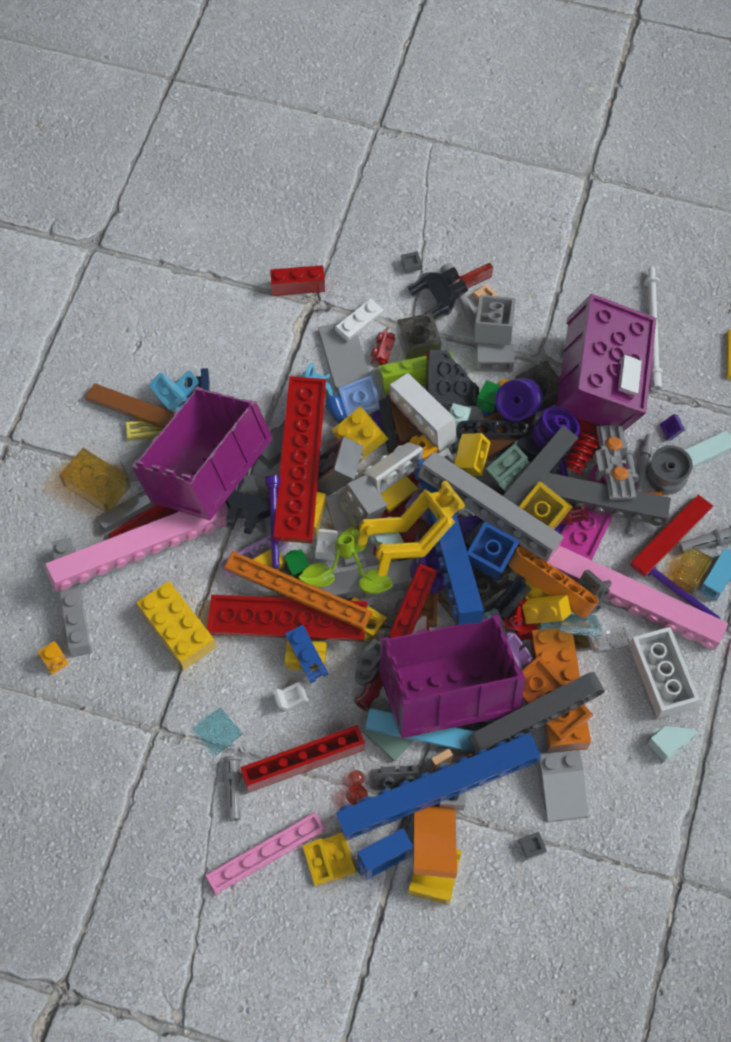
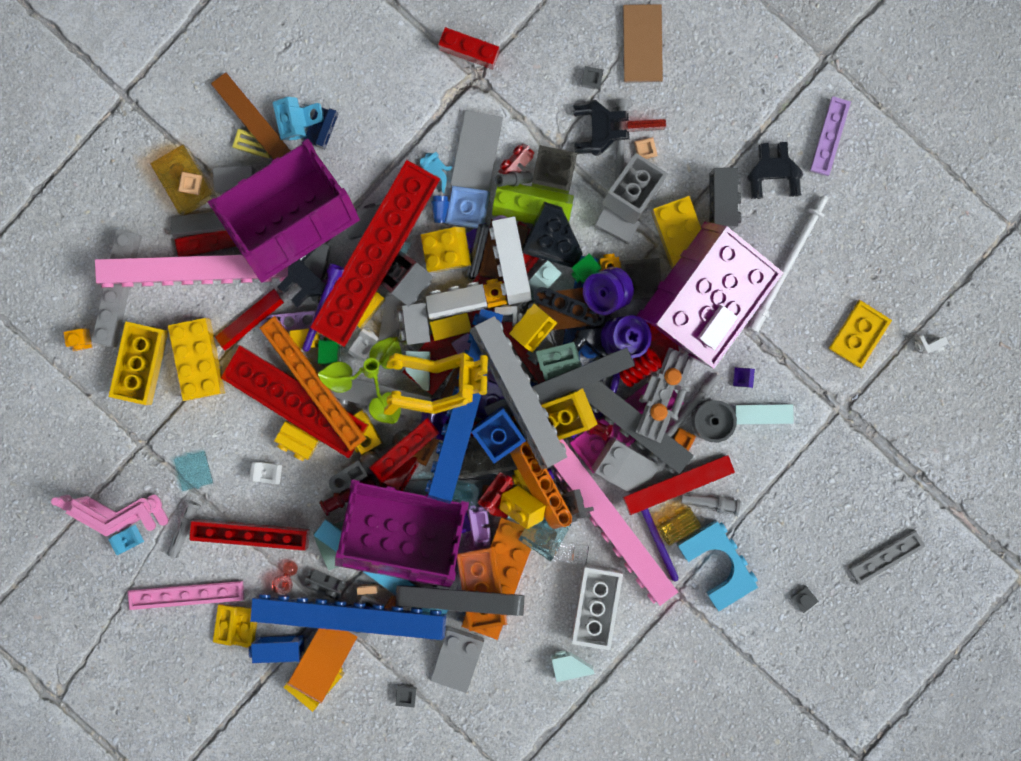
camera: 25 degrees right, 25 degrees up
(104, 472) = (190, 183): none -> light nougat tile
(122, 651) = (138, 363): none -> yellow brick
(159, 804) = (108, 521): none -> bright pink piece
(182, 823) = (126, 540): none -> medium azure bracket
(209, 570) = (249, 319): none -> red tile
(306, 653) = (293, 445): blue plate -> none
(359, 320) = (507, 121): white plate -> none
(388, 356) = (513, 178): none -> dark grey pin
(438, 223) = (642, 43): none -> medium nougat tile
(512, 597) = (497, 482): black tile -> none
(544, 337) = (676, 227): none -> yellow brick
(567, 290) = (724, 197): none -> dark grey brick
(598, 264) = (775, 168): none -> black connector
(614, 538) = (624, 466): none -> light grey slope
(627, 225) = (830, 136): none -> lavender plate

